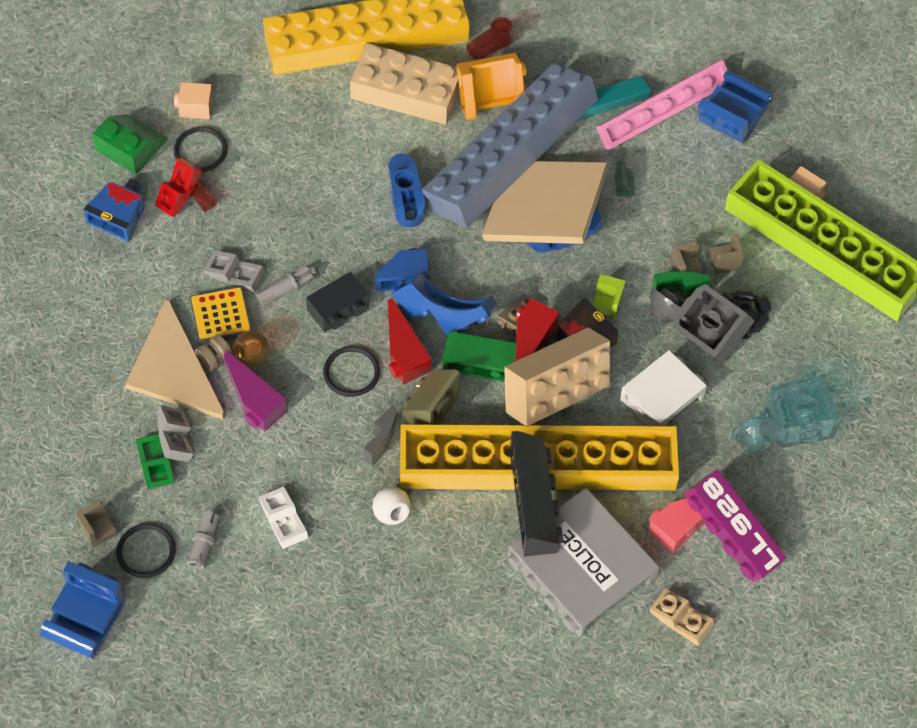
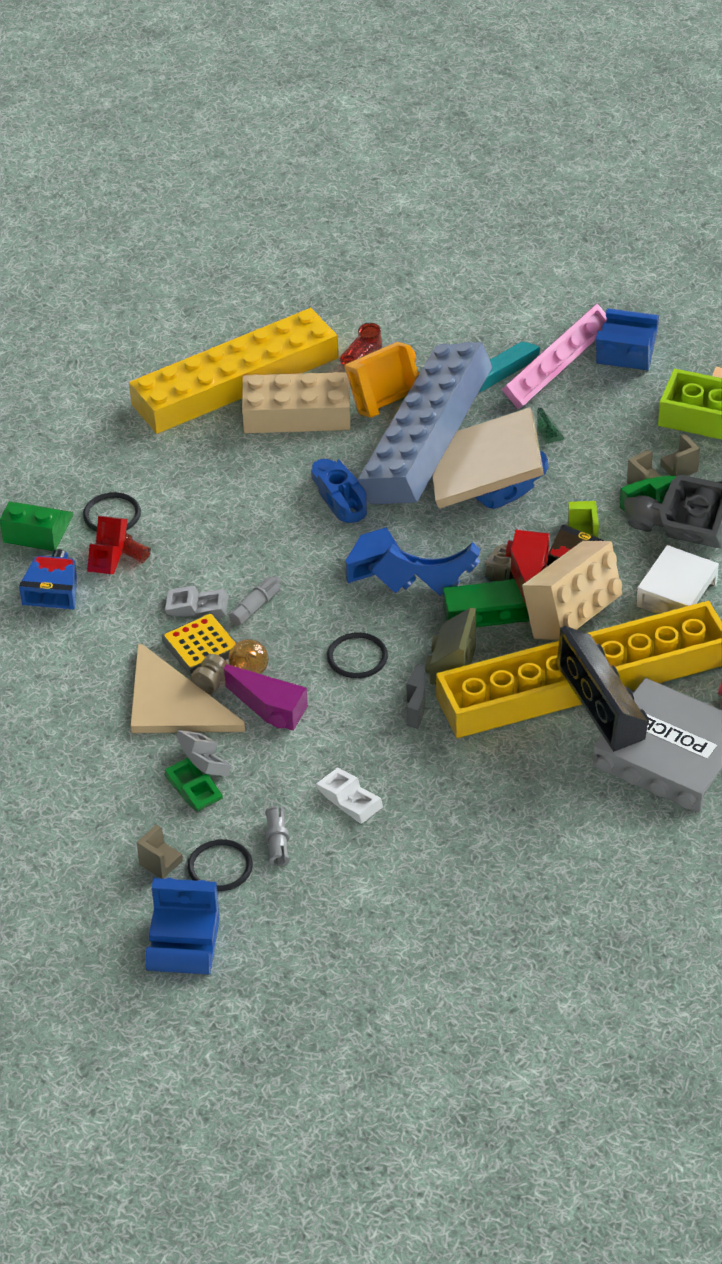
camera: 15 degrees left, 15 degrees down
(194, 100) = (88, 471): light nougat brick -> none
(338, 302) = (316, 598): black brick -> none
(389, 505) = (457, 750): white piece -> none
(407, 354) = (405, 619): red slope -> none

